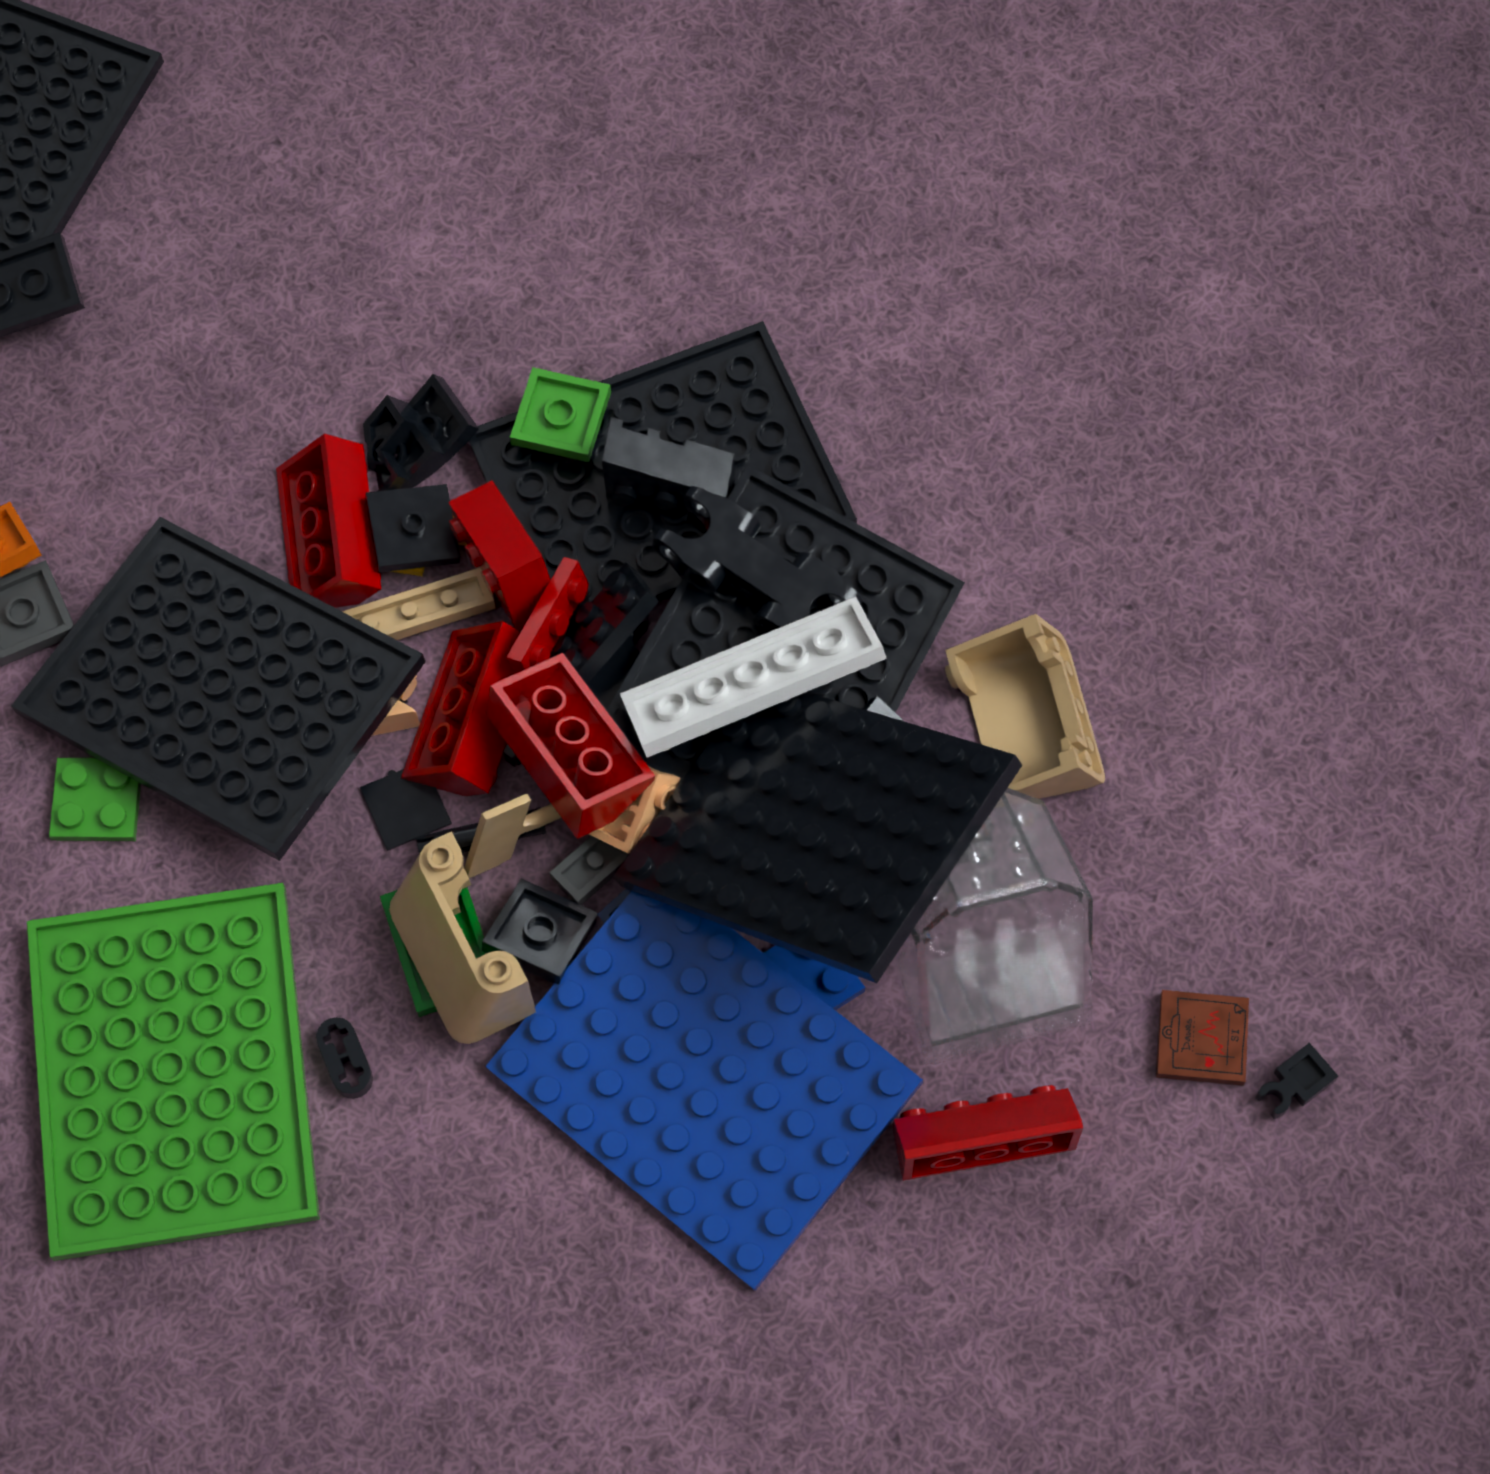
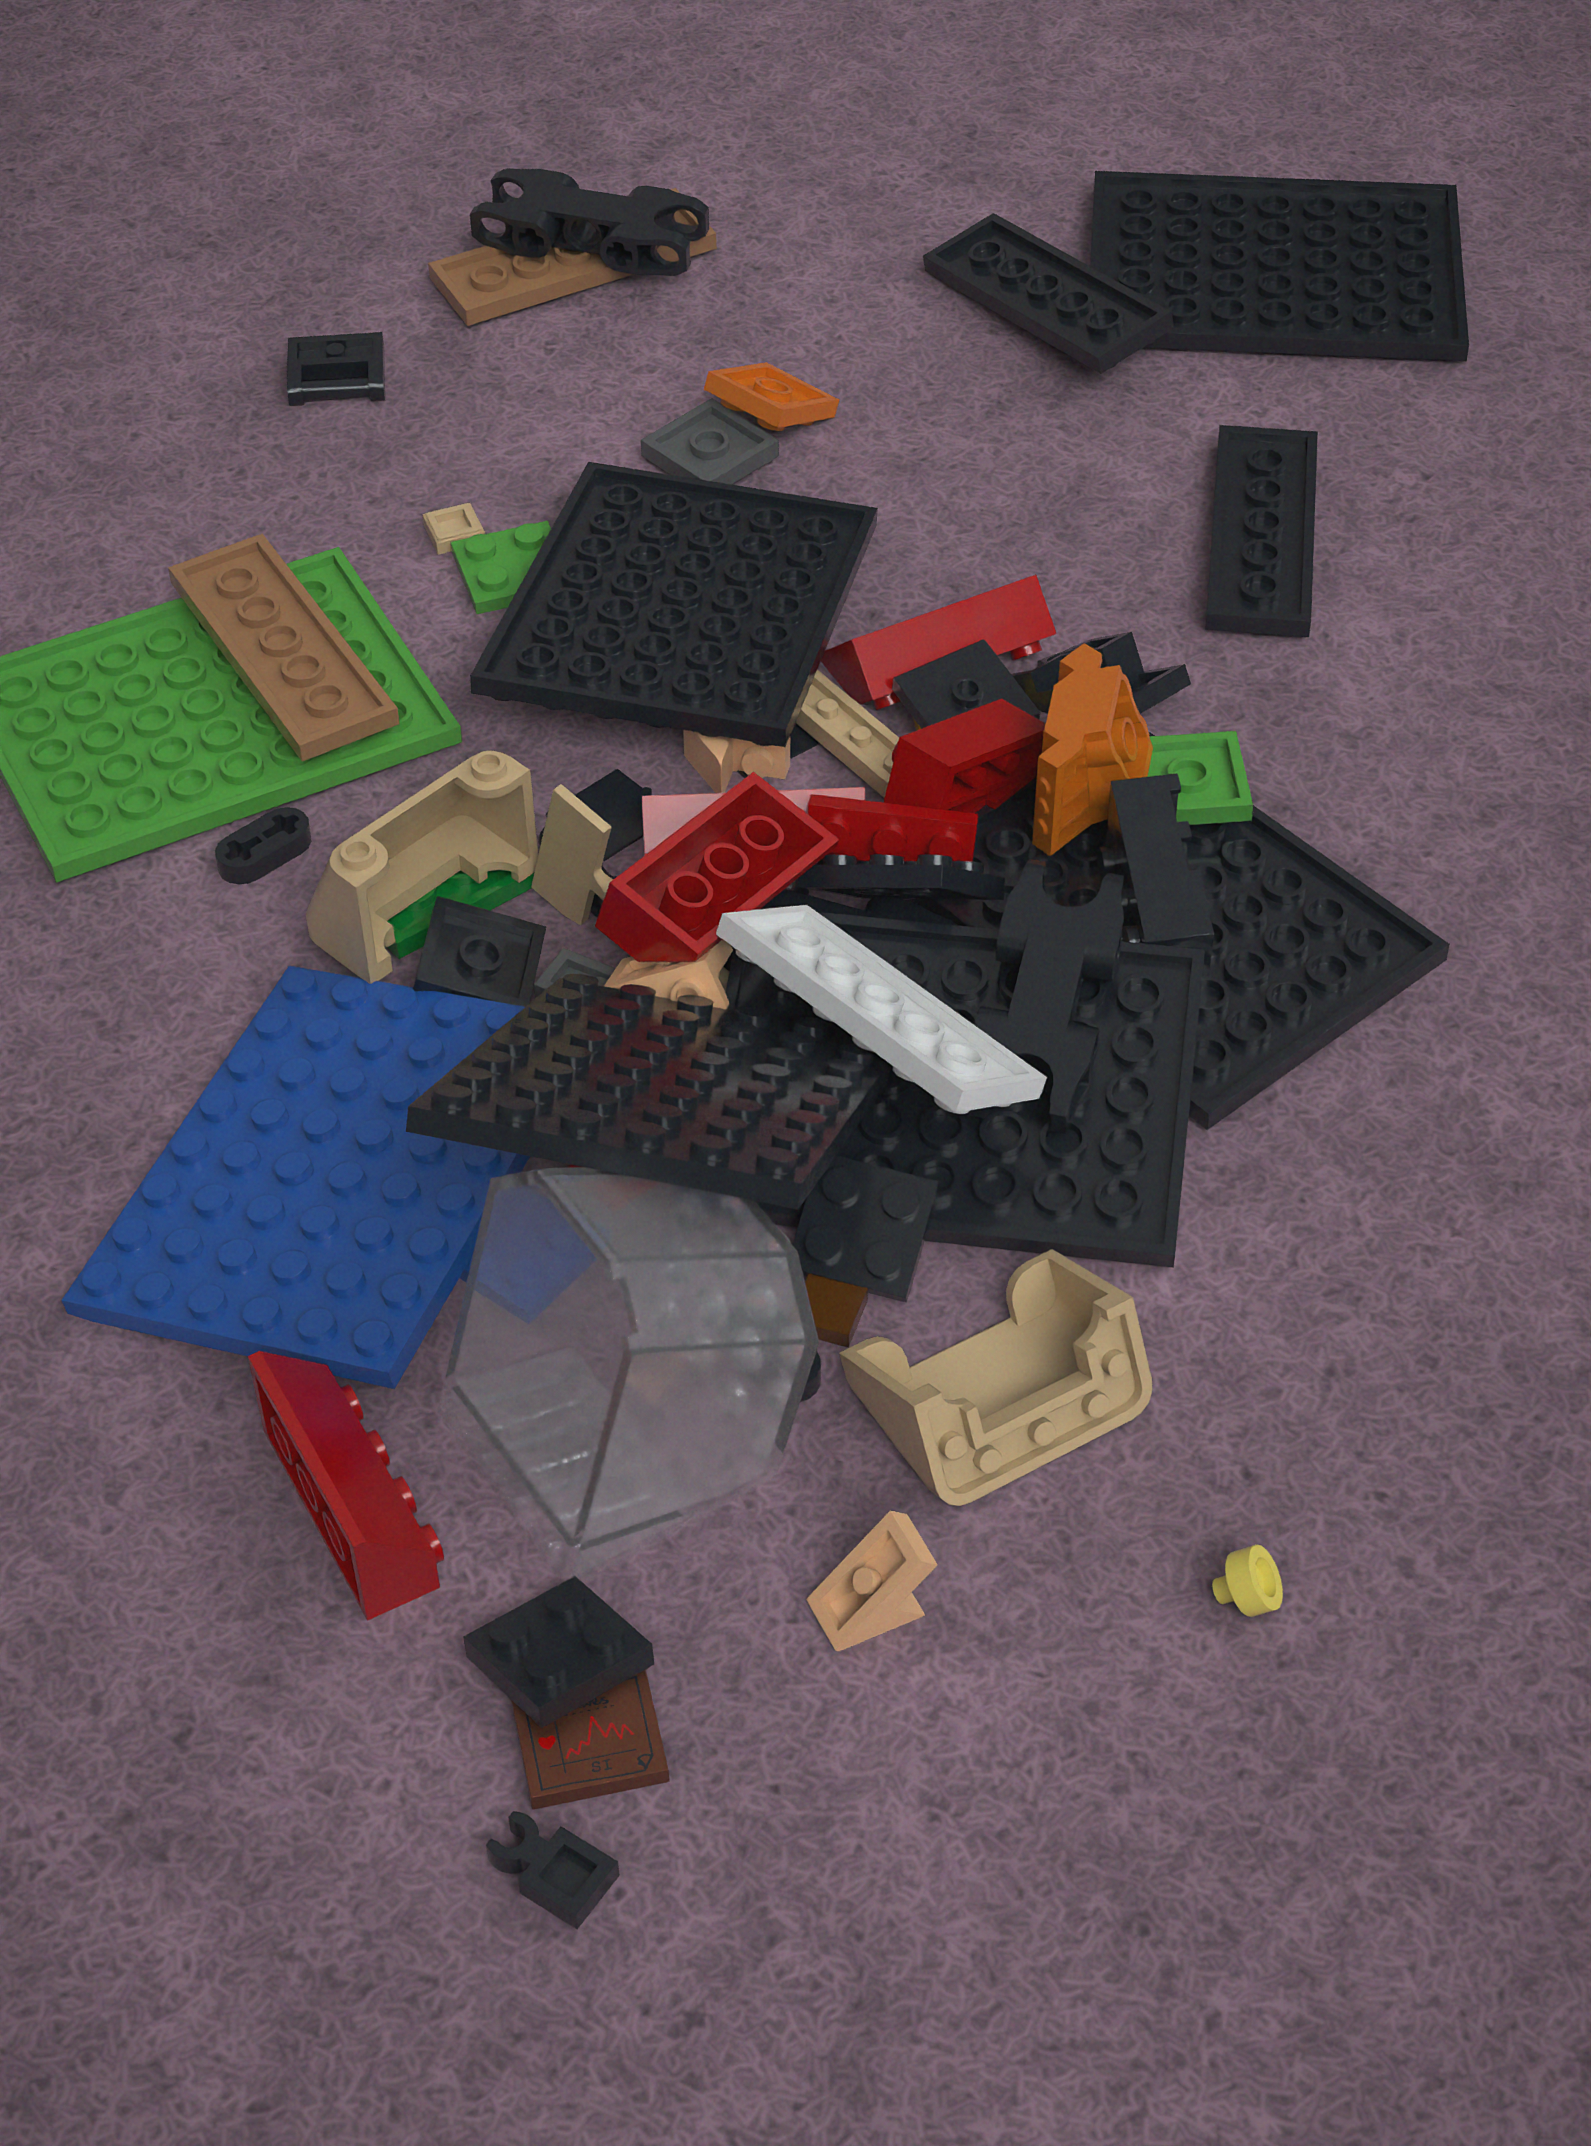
camera: 70 degrees right, 20 degrees down
(27, 830) = (451, 525): none -> tan tile
(145, 988) = (283, 647): none -> medium nougat plate
(297, 269) = (1263, 531): none -> black plate
(533, 469) = (1087, 742): none -> orange slope
(1149, 1036) = (558, 1651): none -> black plate
(1160, 840) = (874, 1584): none -> light nougat slope
(1218, 634) = (1250, 1582): none -> light yellow tile

